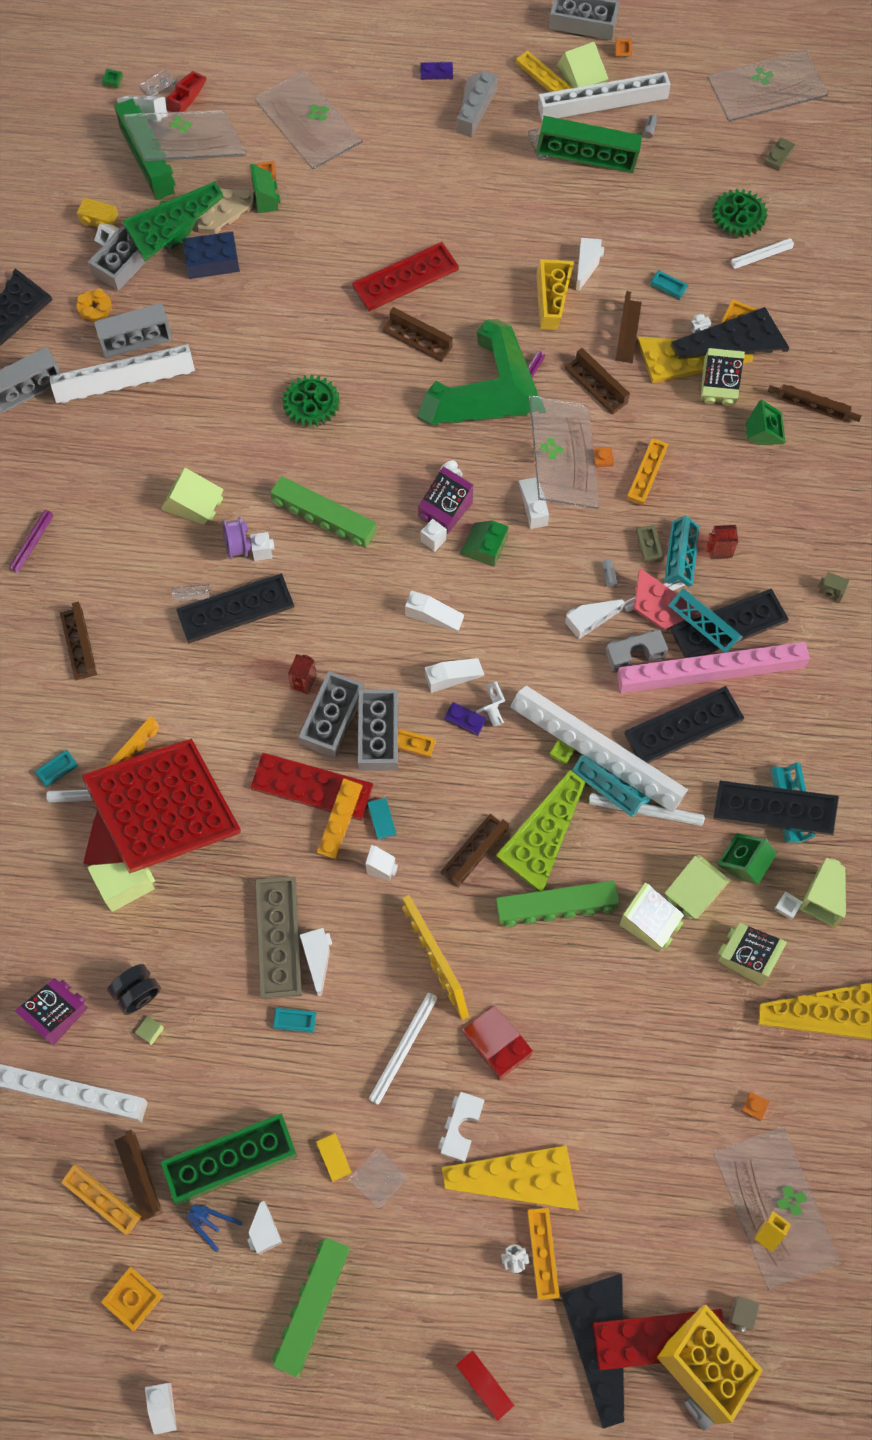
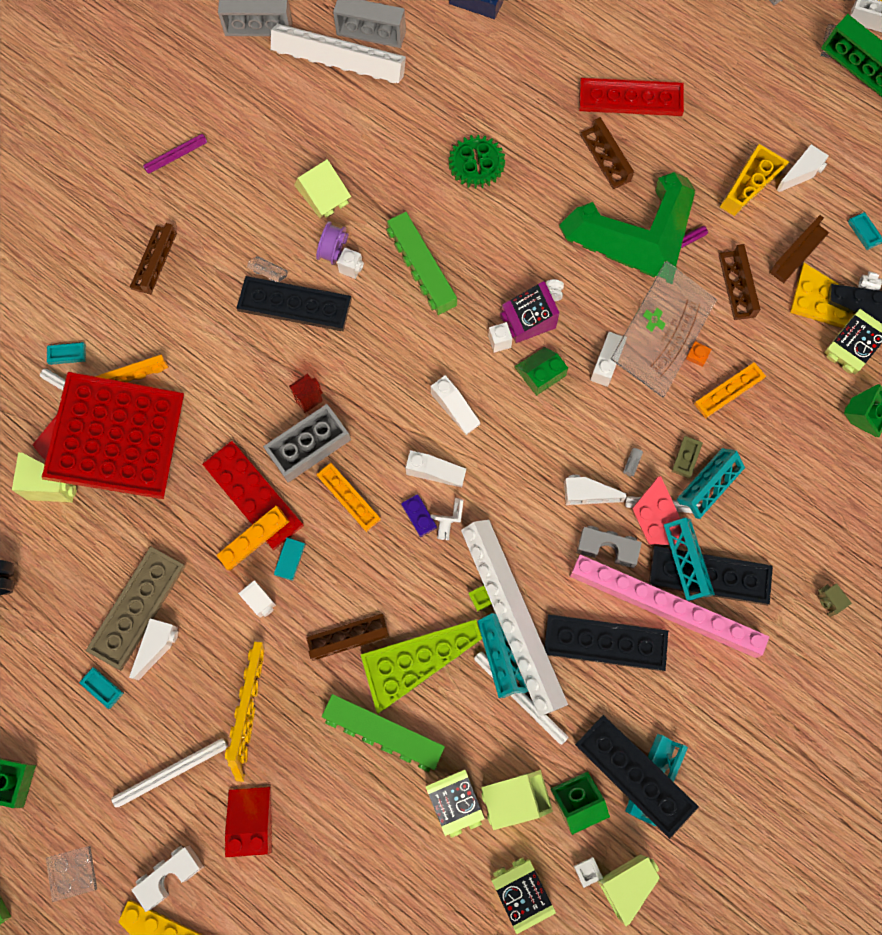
camera: 35 degrees right, 5 degrees up
(334, 1157) = (50, 829): yellow tile -> none
(378, 730) = (332, 481): light grey brick -> none
(722, 542) = (754, 495): clear red brick -> none

